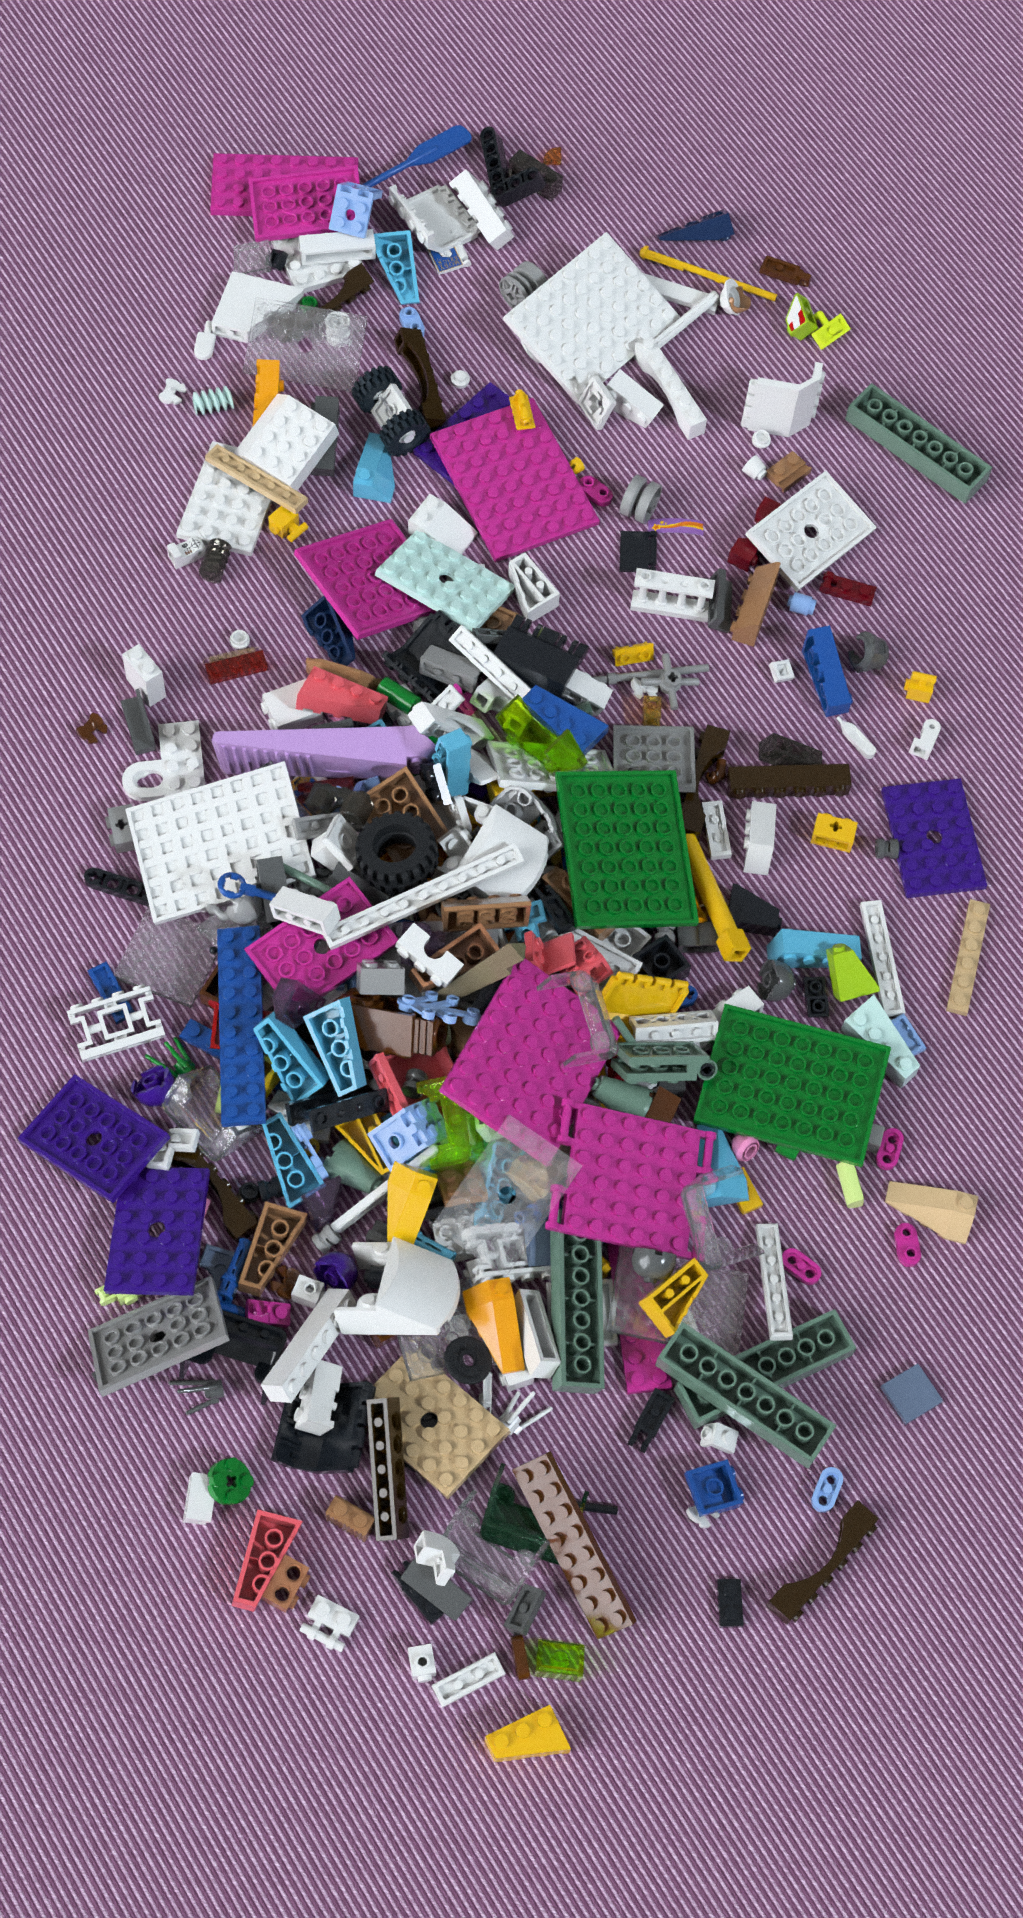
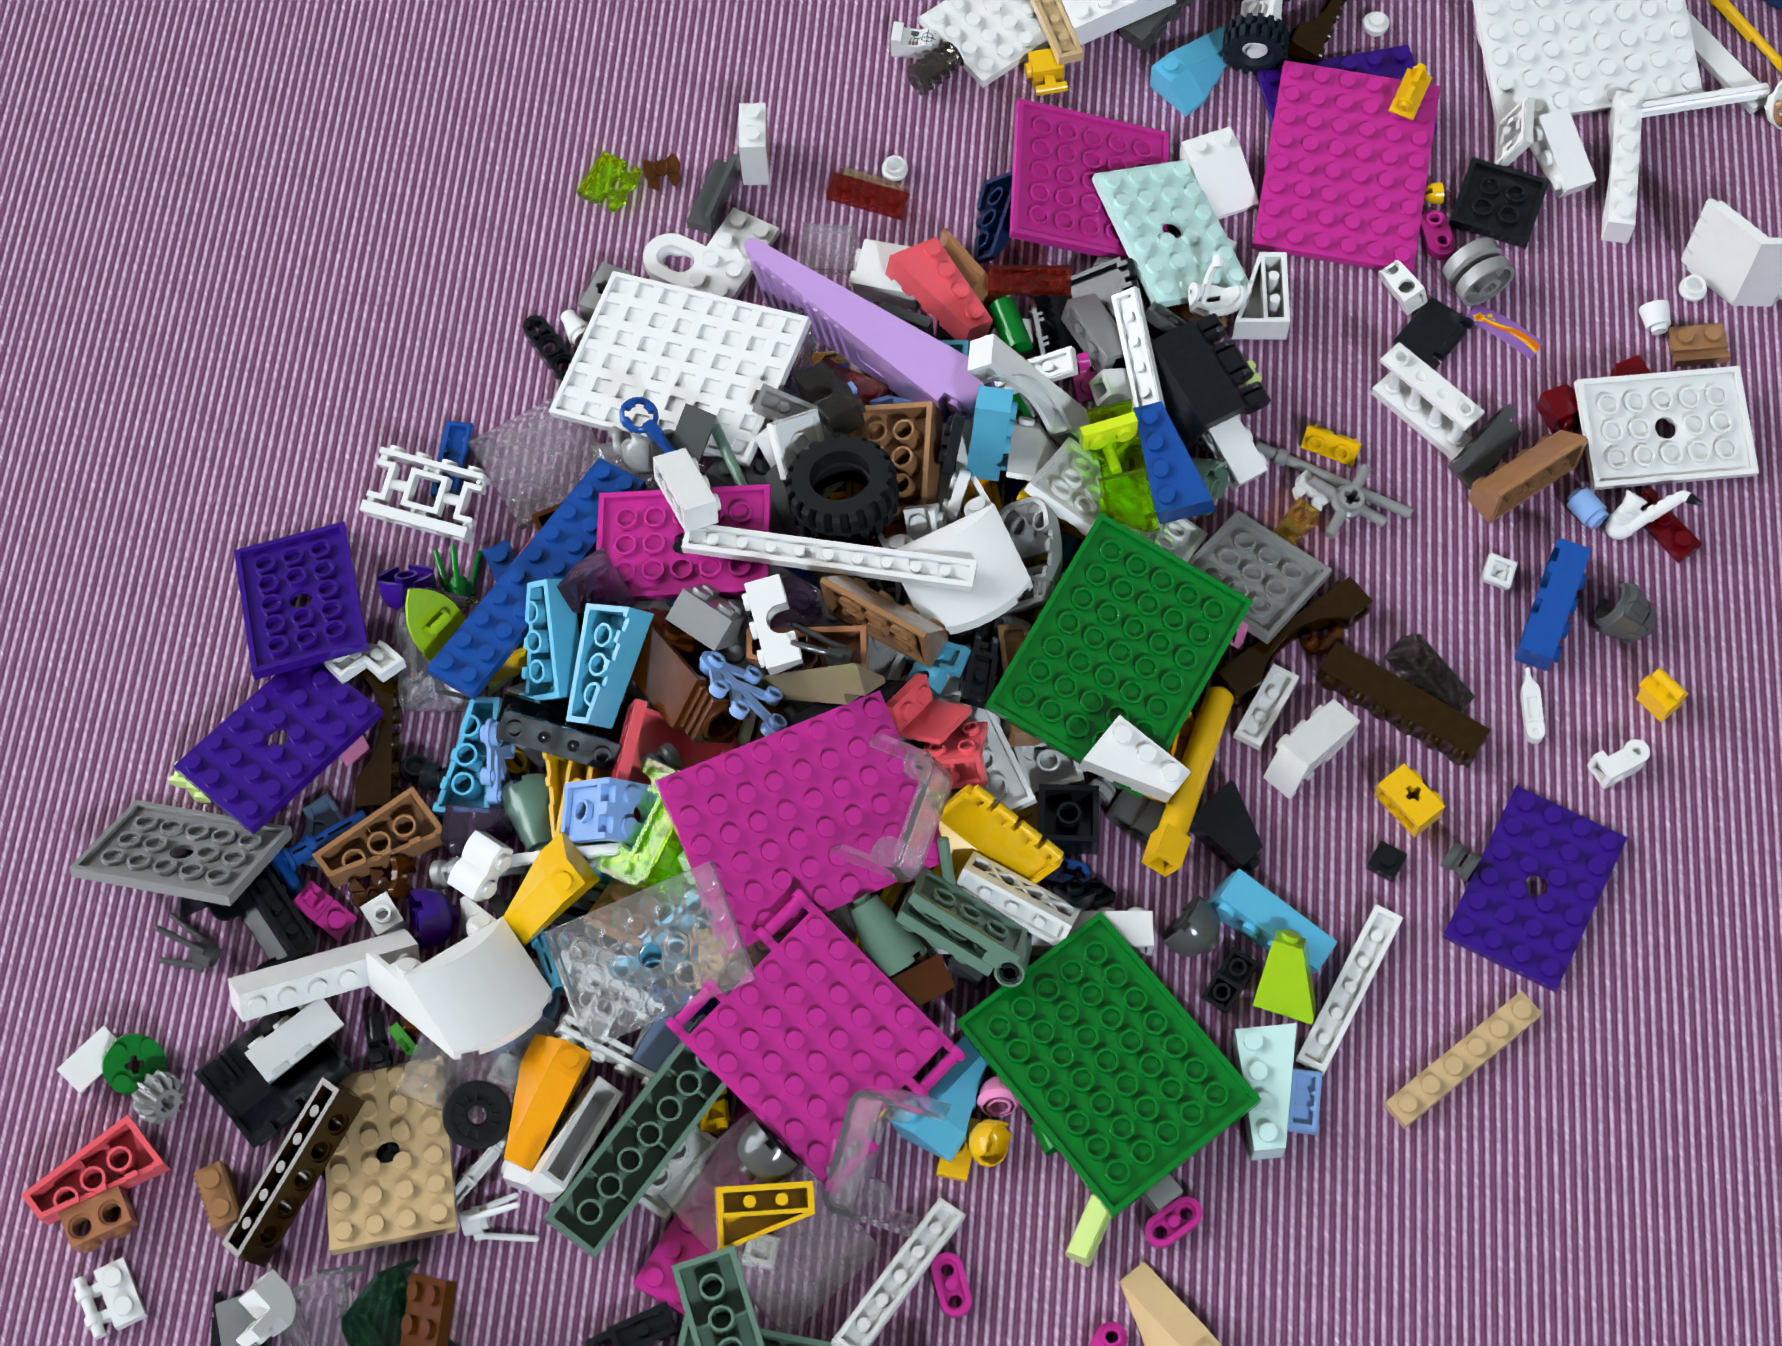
camera: 45 degrees right, 0 degrees up
(56, 756) = (602, 178): none -> clear neon green plate
(123, 861) = (574, 326): none -> white cone
(200, 1096) = (431, 620): none -> lime shield
(239, 713) = (828, 248): none -> clear tile
(262, 1488) = (158, 1097): none -> light grey gear
(299, 1261) = (399, 876): none -> reddish brown piece
(351, 1219) = (480, 866): none -> white brick
(372, 1369) = (378, 1041): none -> black bar
(380, 1353) = (402, 1039): none -> bright green tile
(392, 659) = (1029, 279): none -> clear red plate
(479, 951) = (837, 655): none -> dark grey plant
(514, 601) = (1230, 297): none -> white helmet
(515, 724) = (1105, 433): none -> neon yellow plate
(601, 533) = (1403, 286): none -> white leg
(616, 450) = (1498, 202): none -> black plate
(684, 904) = (1135, 761): none -> white wedge
(704, 1000) = (1085, 895): none -> black slope
(760, 1174) = (989, 1142): none -> yellow hair
(829, 595) = (1630, 517): none -> white piece
(846, 875) = (1386, 861): none -> black plate

